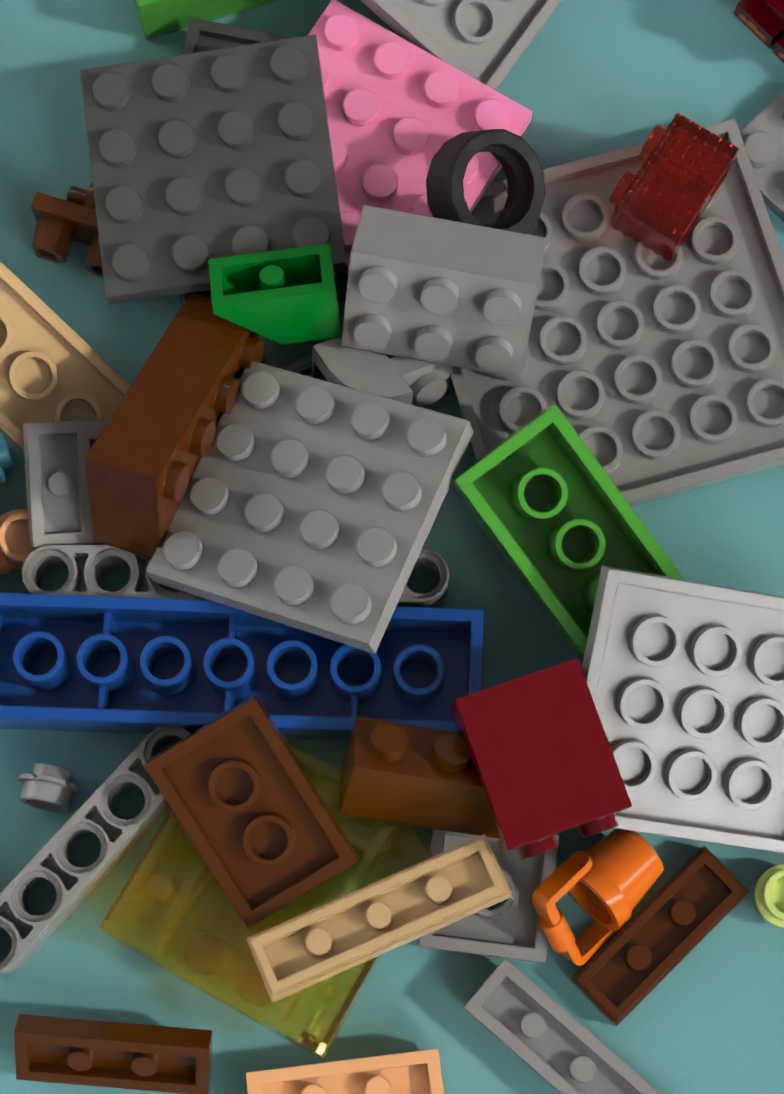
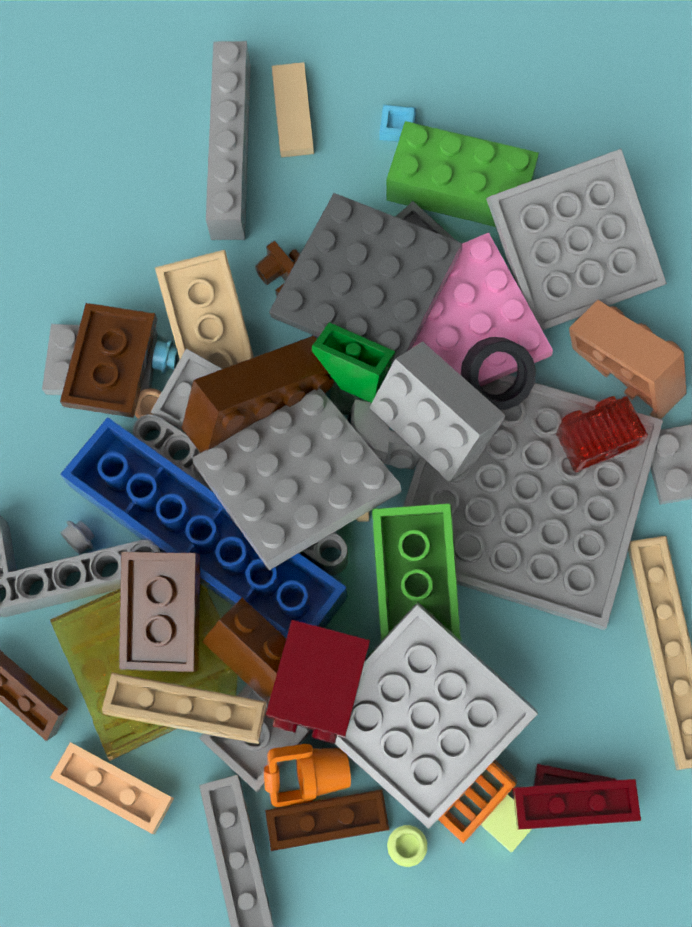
camera: 40 degrees right, 5 degrees down
(636, 54) = (633, 355): none -> nougat wedge

